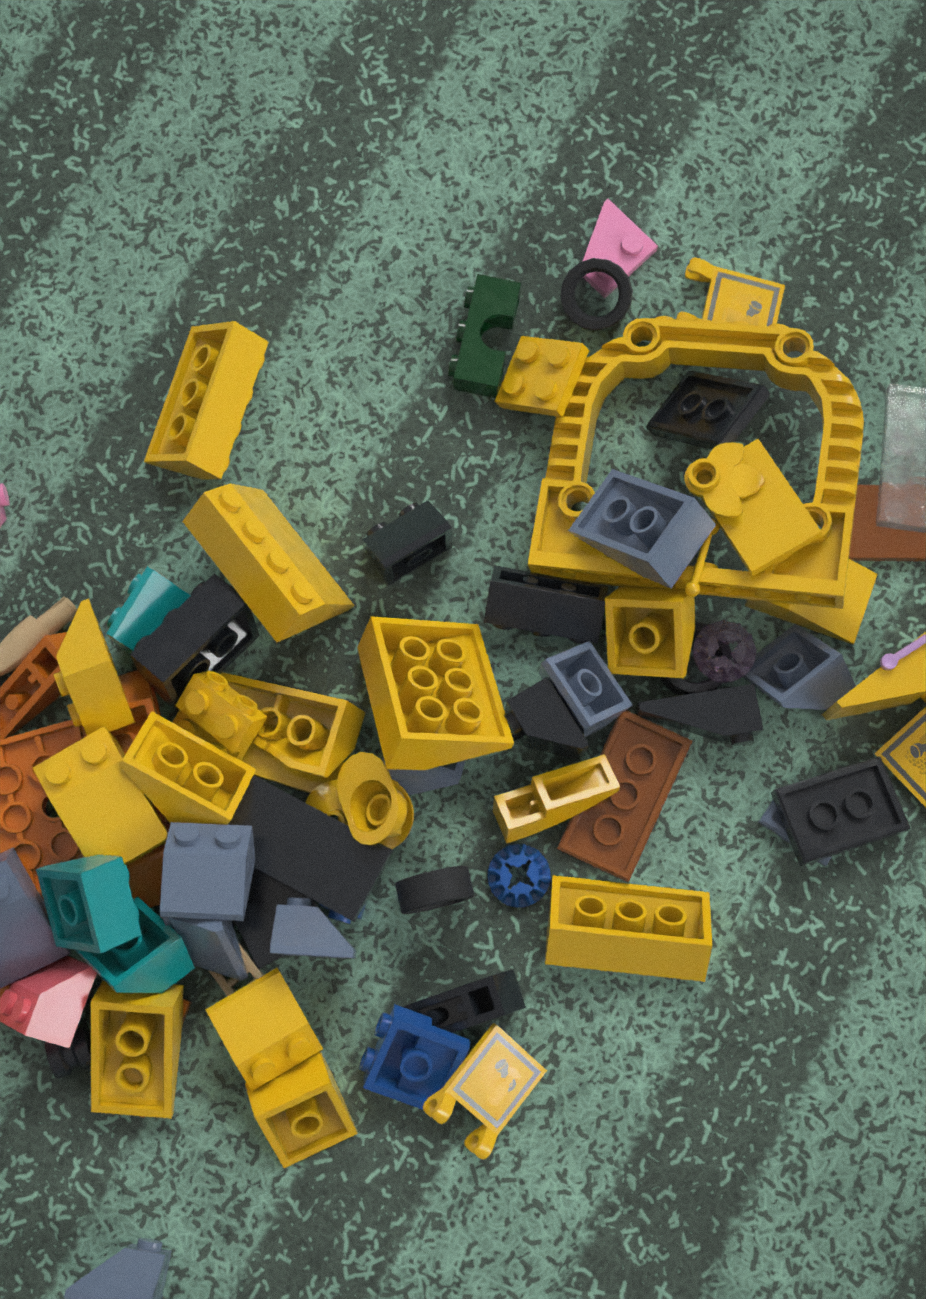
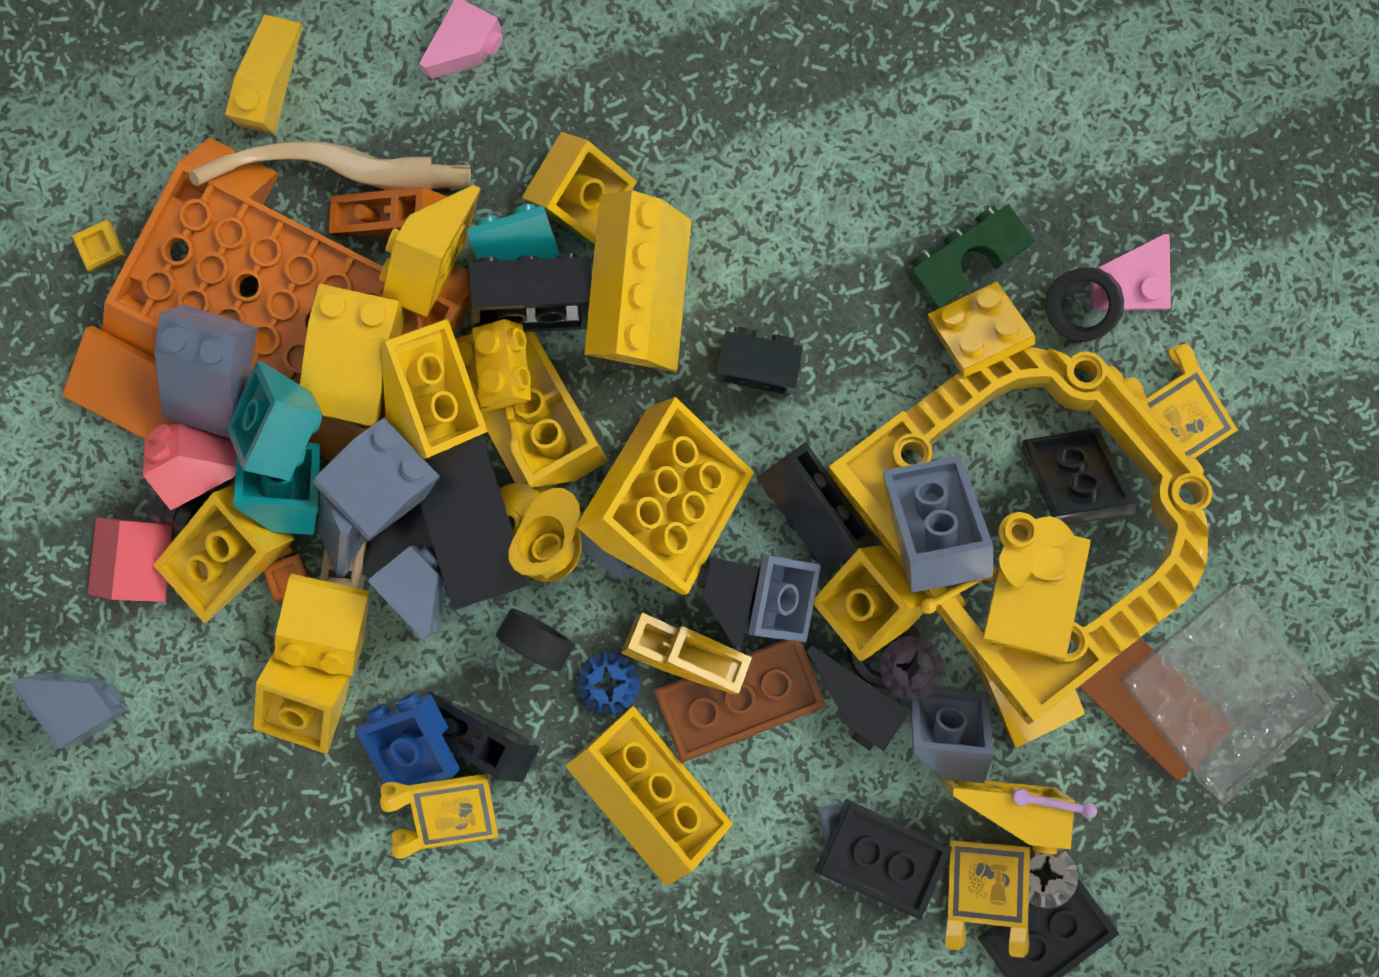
camera: 40 degrees right, 10 degrees up
(65, 1130) = (125, 560): none -> coral slope
(153, 535) = (572, 184): none -> yellow slope
(199, 1028) = (279, 573): none -> orange tile
(207, 400) = (713, 111): yellow slope -> none

